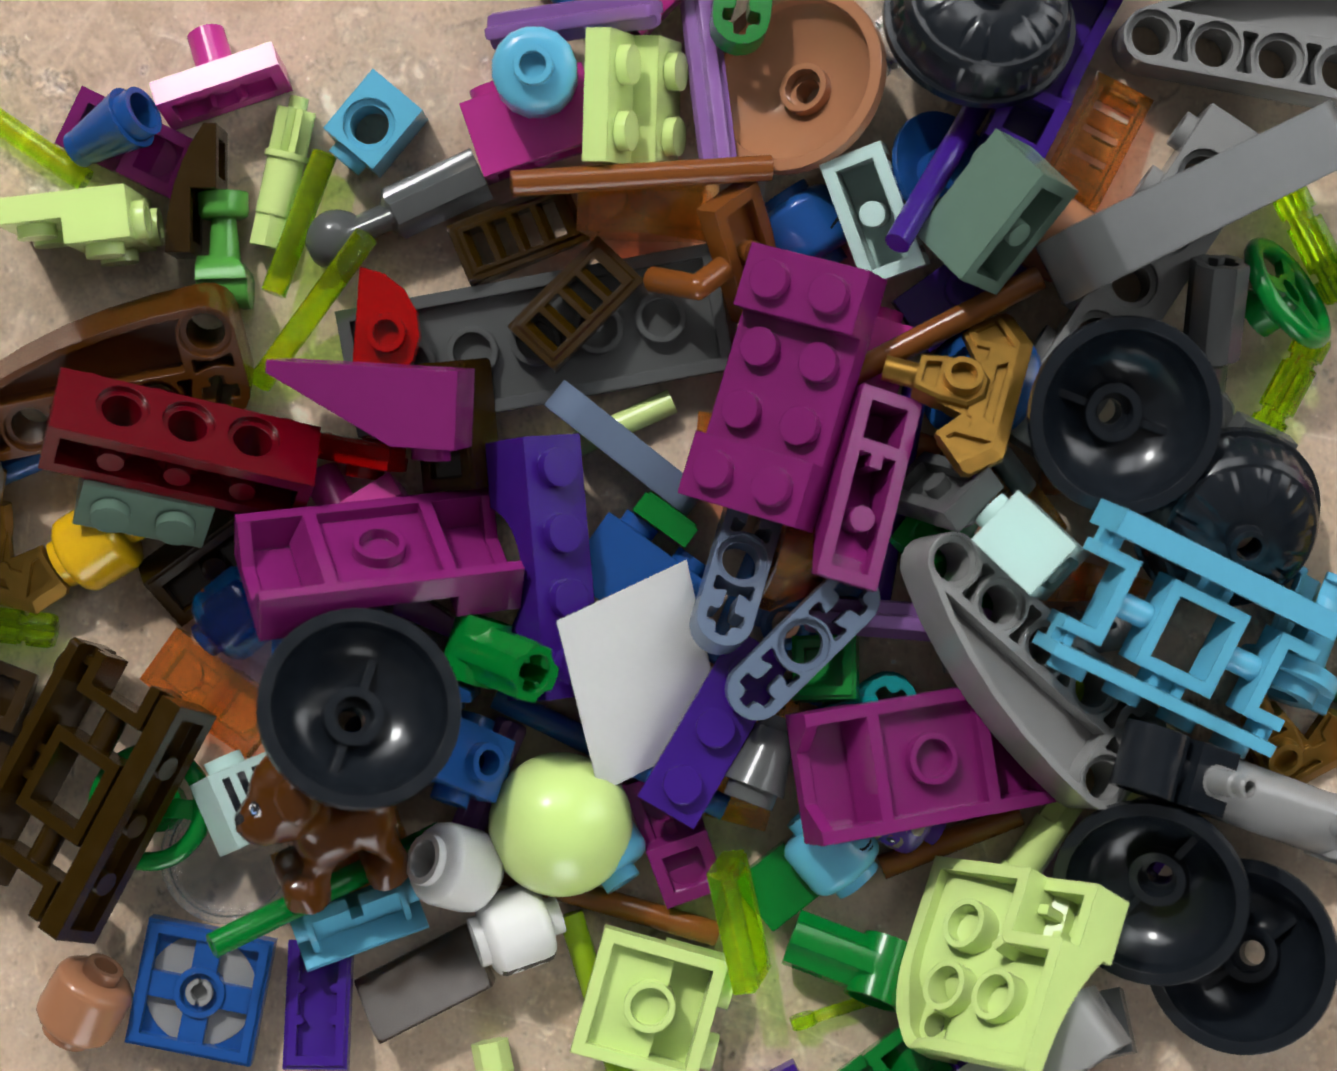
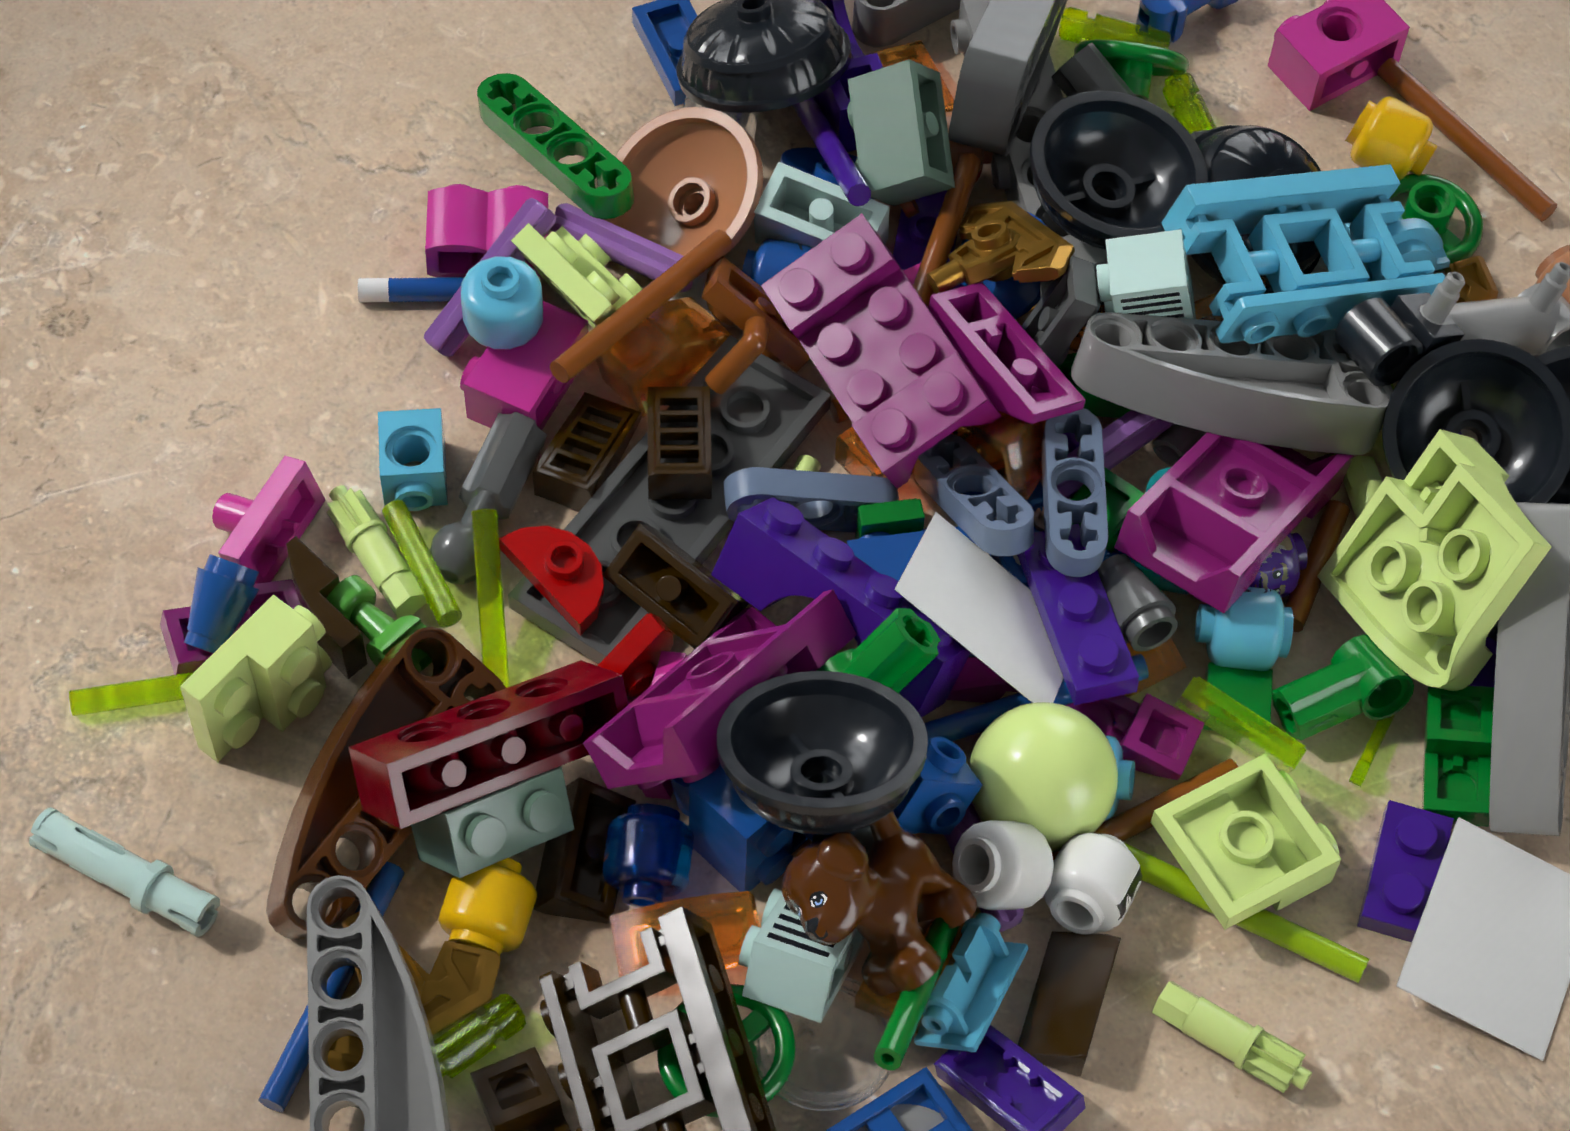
camera: 45 degrees left, 30 degrees down
(392, 402) = (615, 582): magenta slope -> none

